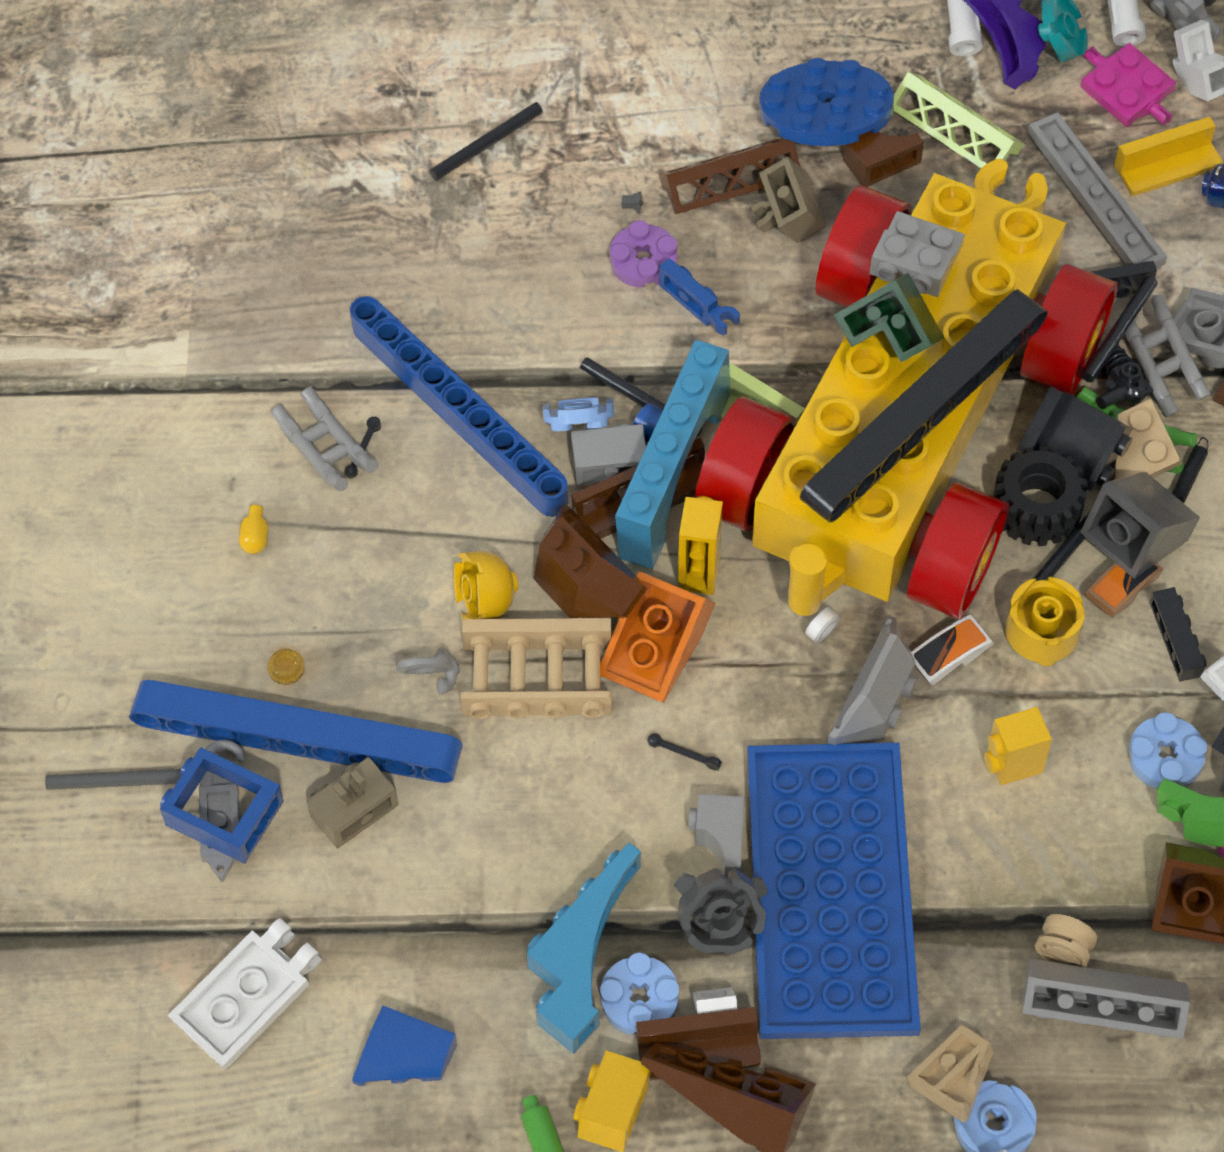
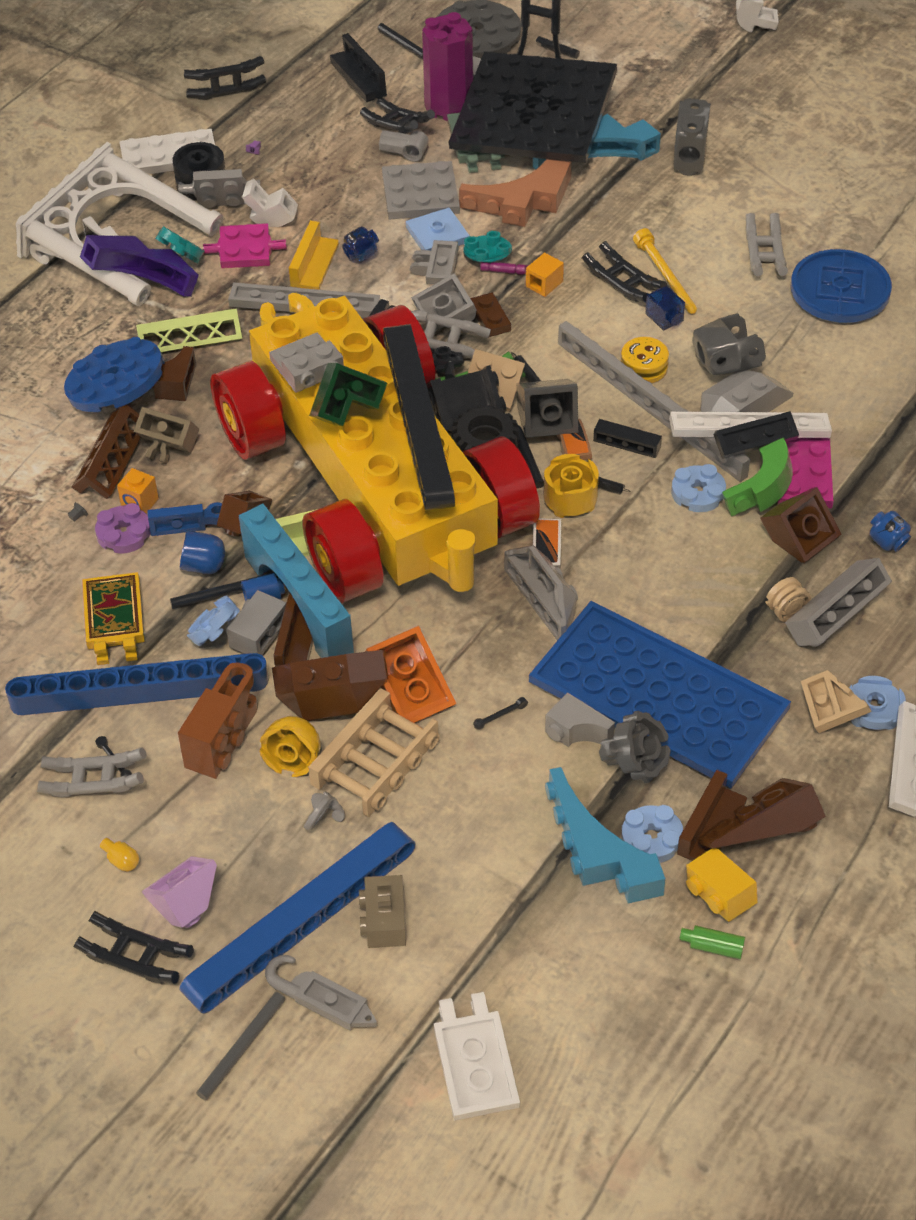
camera: 55 degrees left, 10 degrees down
(170, 599) = (126, 934): none -> black piece
(243, 610) = (183, 891): none -> lavender slope
(252, 824) = (338, 1005): blue window -> none
(286, 666) = (243, 894): clear yellow plate -> none
(404, 1050) = (591, 985): blue slope -> none
(458, 504) = (218, 722): none -> dark orange brick
(528, 325) = (113, 614): none -> tile
(659, 343) = (202, 553): none -> blue helmet
(693, 233) = (138, 489): none -> light orange brick
(700, 545) = (376, 605): yellow brick -> none
(714, 1000) = (690, 793): white tile -> none
(750, 339) = (236, 504): none -> reddish brown arch
(822, 625) = (477, 592): white tile -> none
(1018, 746) = (645, 542): yellow brick -> none
(1092, 659) = (611, 485): none -> black piece

